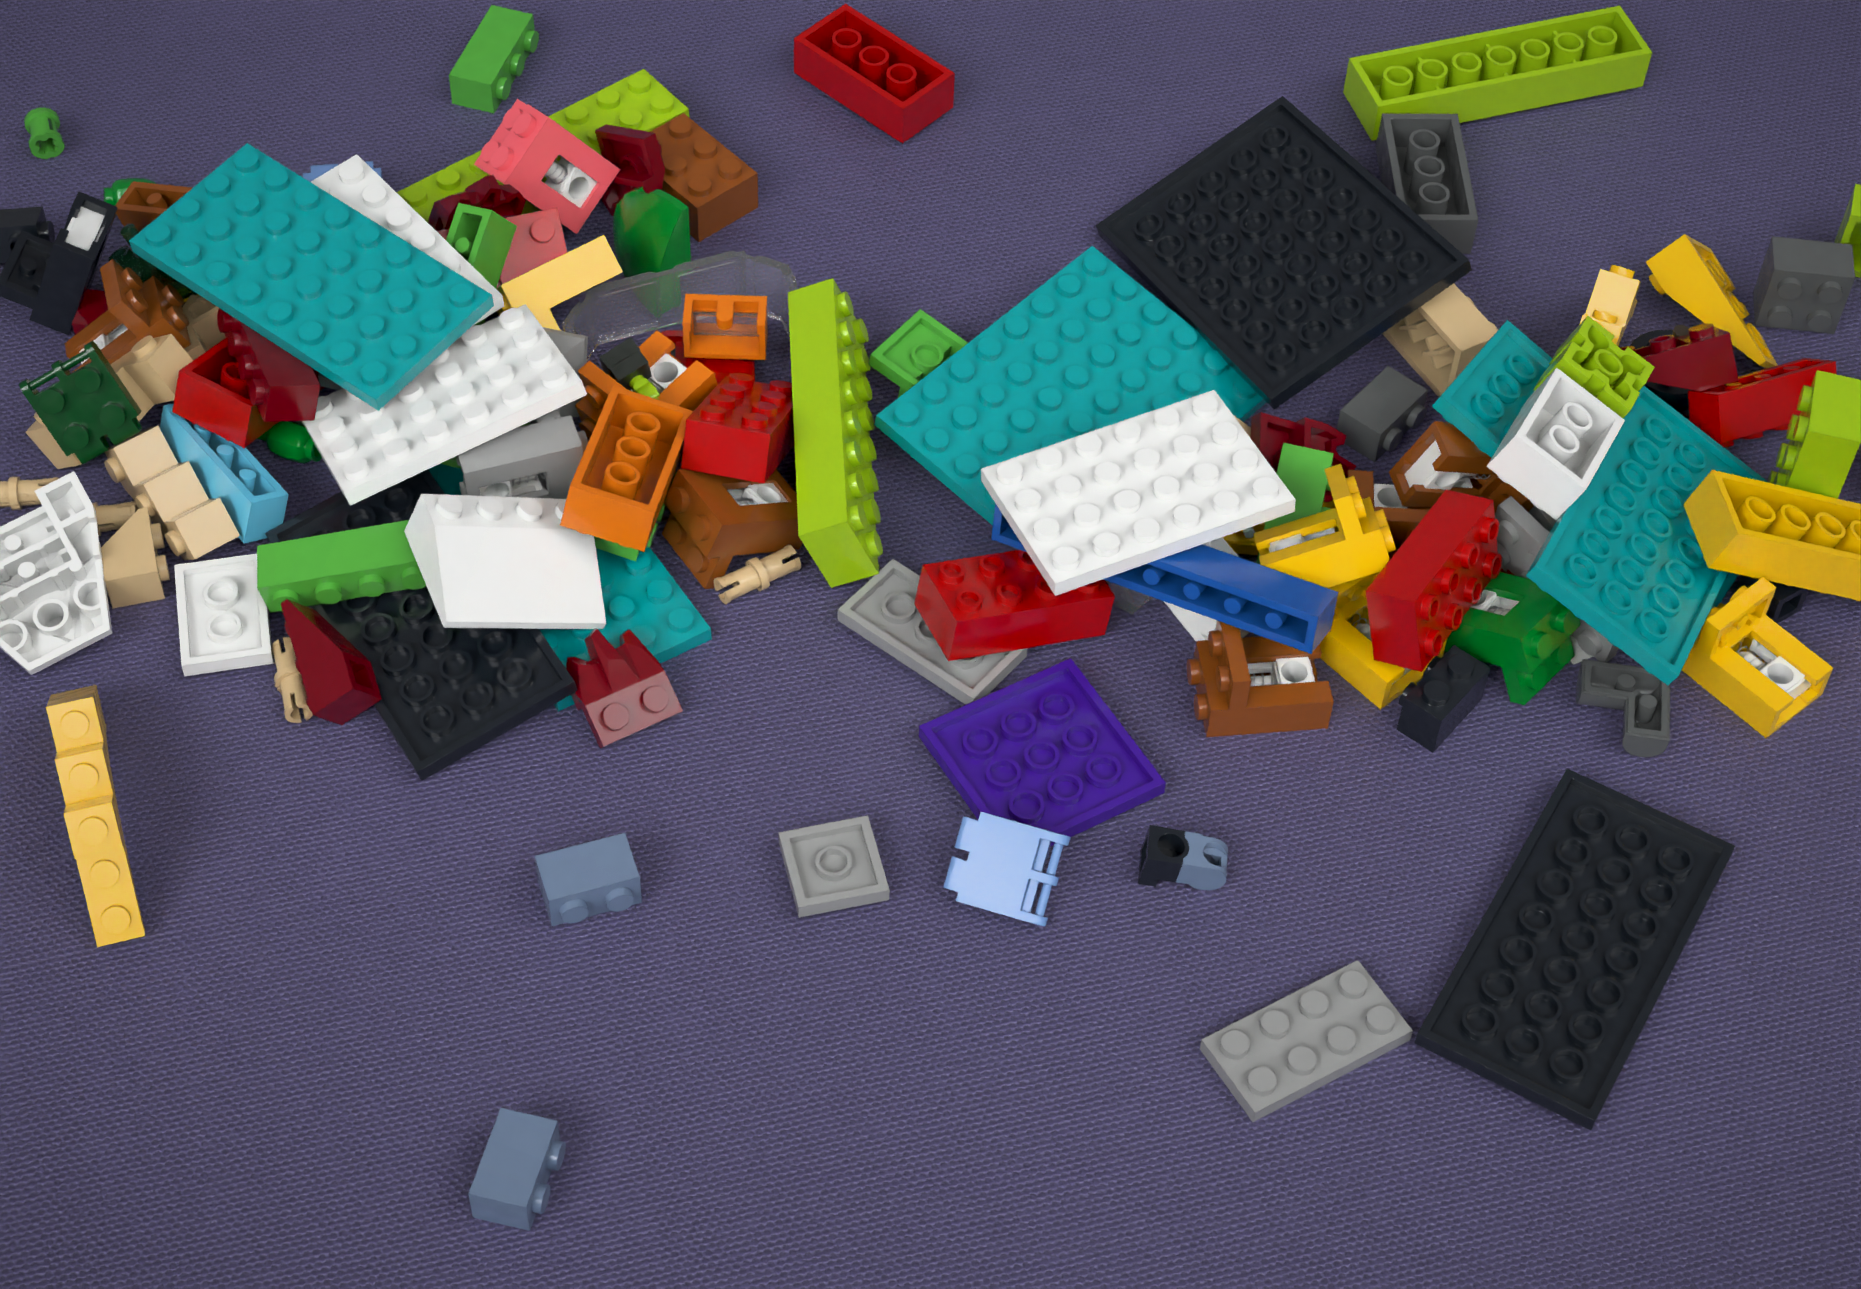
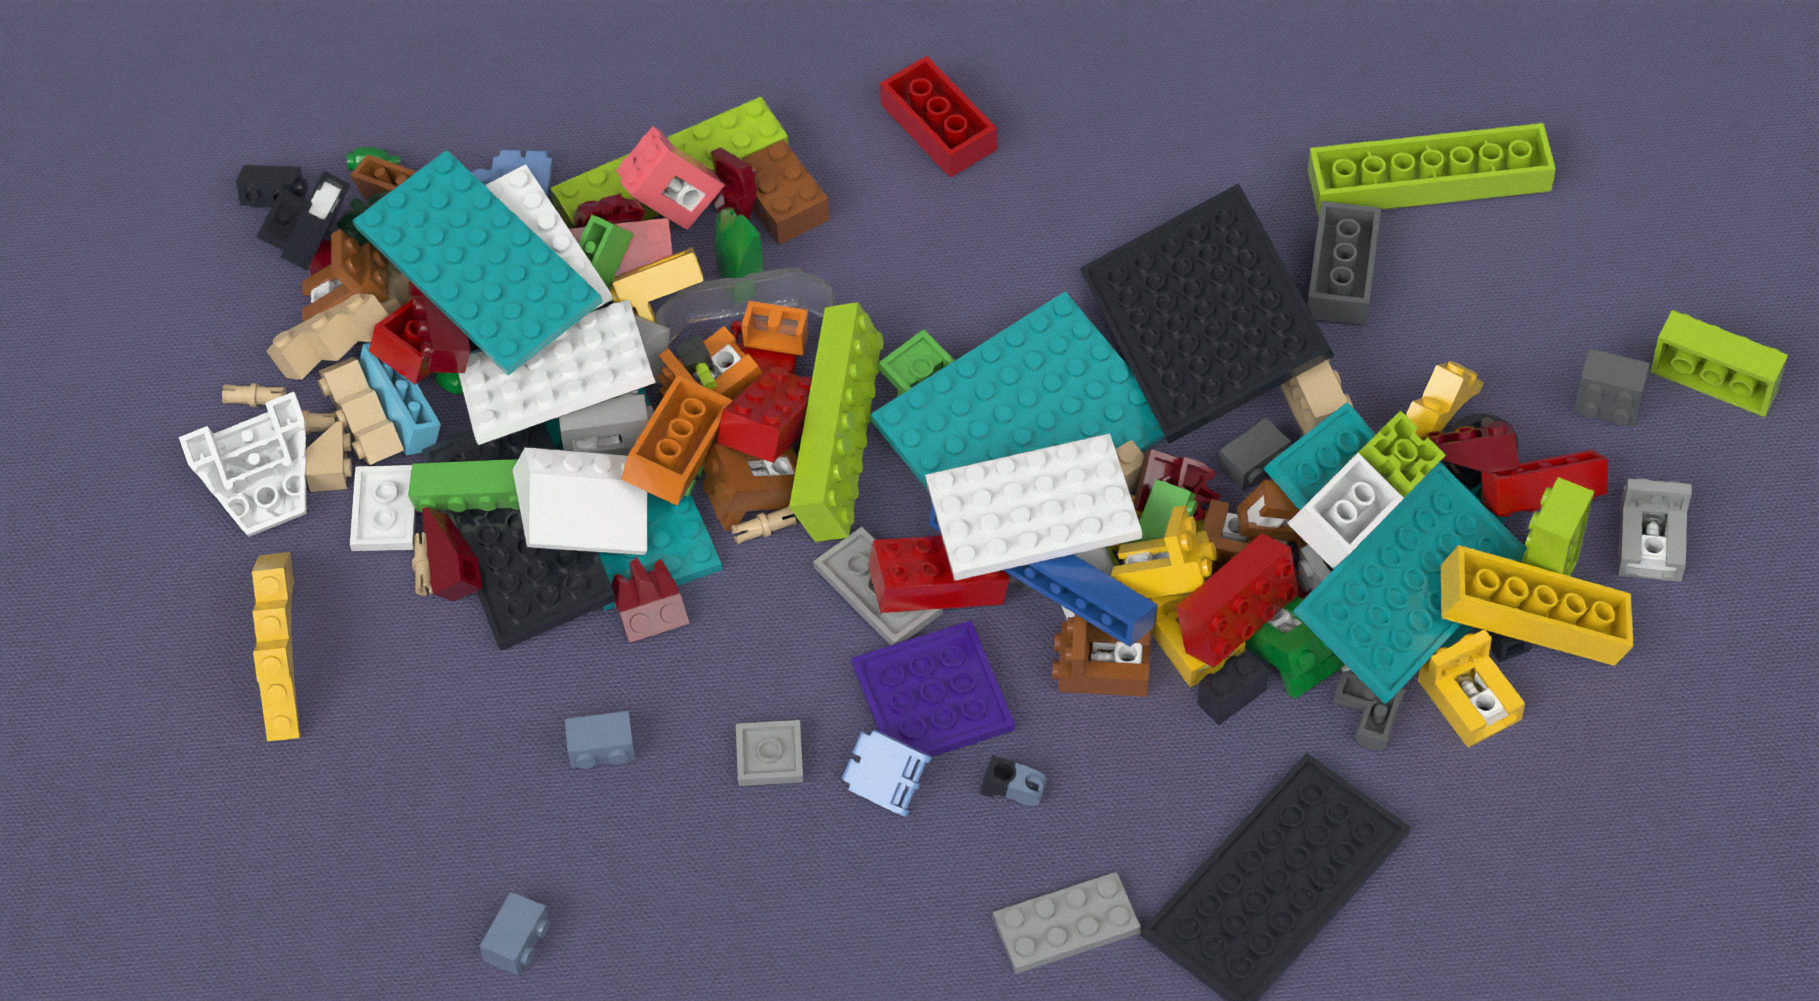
camera: 15 degrees right, 5 degrees up
(38, 126) = (310, 99): bright green bush -> none
(84, 405) = (307, 341): dark green plate -> none
(493, 59) = (652, 70): bright green brick -> none
(1700, 284) = (1536, 378): yellow wedge -> none

